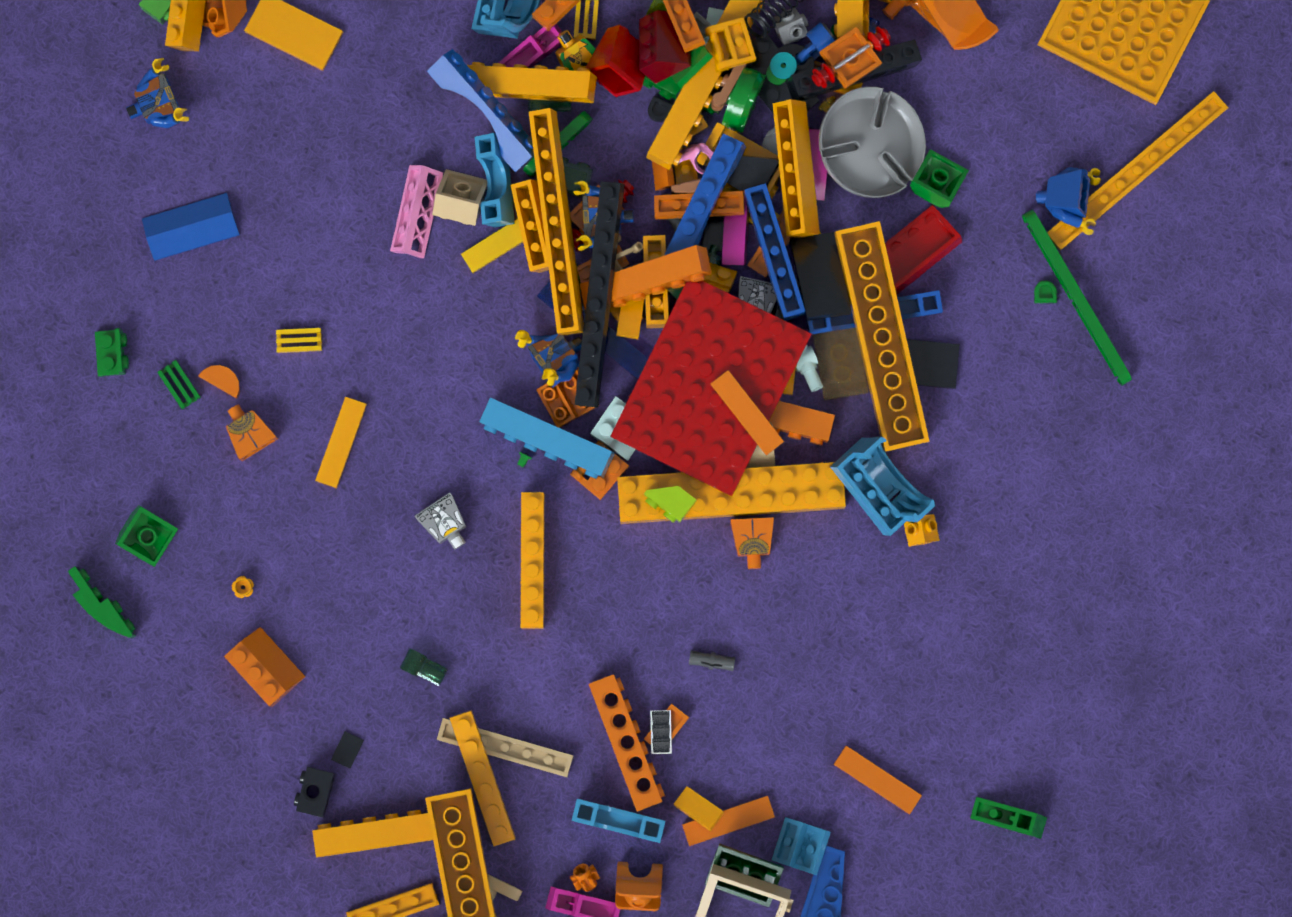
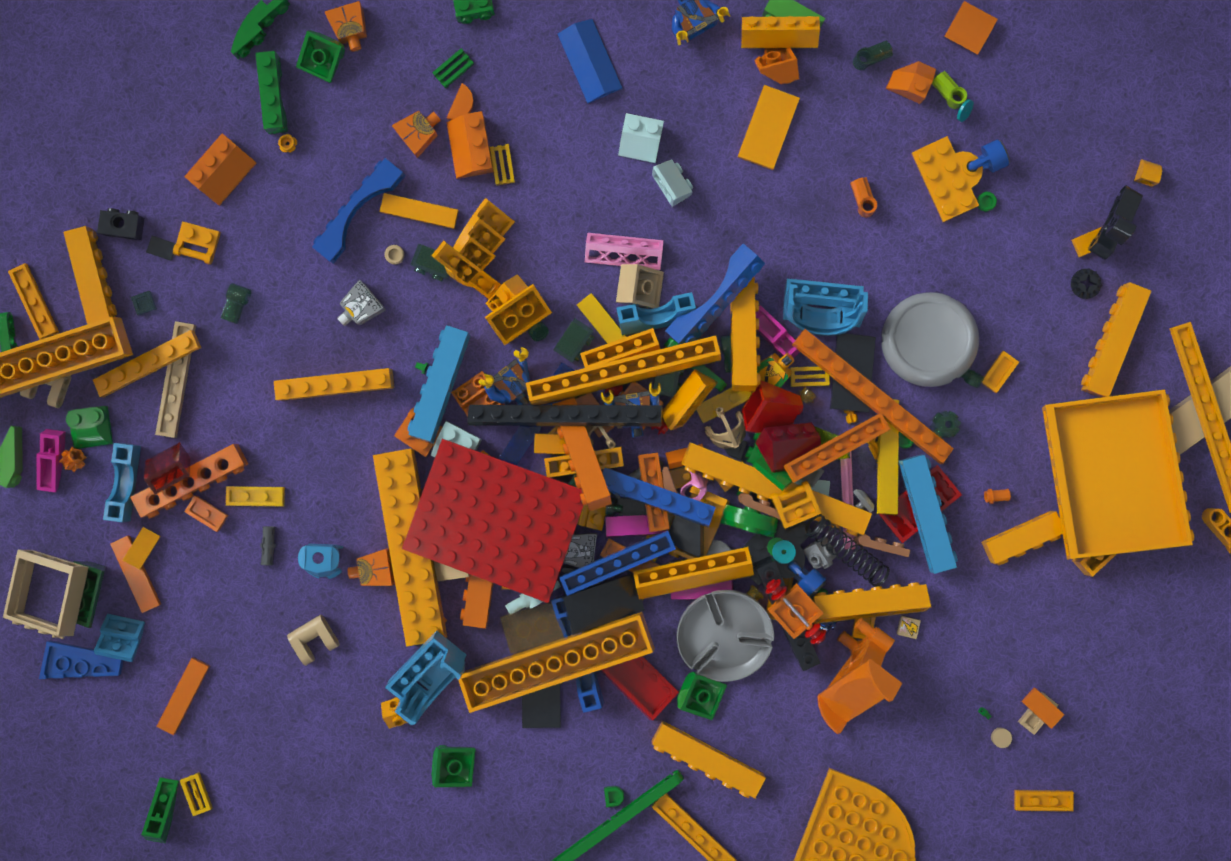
camera: 85 degrees right, 5 degrees up
(113, 499) = (348, 24): none -> orange torso
(182, 596) = (270, 94): none -> green arch
(272, 374) = (470, 145): none -> orange slope
(288, 177) = (640, 138): none -> light aqua slope
(301, 479) = (333, 240): none -> blue arch
(339, 704) = (197, 236): none -> light orange plate
(345, 146) = (671, 182): none -> light aqua slope
(388, 476) = (394, 254): none -> tan tile
(394, 378) = (476, 248): none -> light orange slope
(404, 431) = (425, 263): none -> clear green brick
(410, 777) = (143, 303): none -> tile
(452, 350) = (506, 292): none -> light orange slope
(478, 336) = (518, 314): none -> light orange slope
(497, 319) = (538, 331): none -> clear green tile
(514, 278) = (574, 341): none -> clear green brick
(549, 856) = (90, 427): none -> green slope
(596, 154) = (687, 399): none -> light orange slope
(606, 120) = (726, 400): none -> yellow tile
(607, 21) = (807, 395): none -> clear yellow plate
(608, 761) = (167, 468): none -> clear red brick
(636, 892) = (62, 505): orange piece -> none
(644, 109) = (731, 434): none -> tan helmet
(652, 670) = (255, 496): none -> yellow tile
(661, 732) = (201, 509): sticker -> none
(672, 500) = (392, 497): lime slope -> none
(744, 604) = (328, 567): none -> dark azure piece
(747, 412) = (472, 555): orange tile -> none
(818, 622) = (309, 631): none -> tan connector
(991, 472) = (453, 766): none -> green slope
(1012, 180) = (708, 759): none -> light orange brick
(1012, 772) = (194, 811): none -> yellow tile
(1068, 196) = (697, 809): blue torso -> none

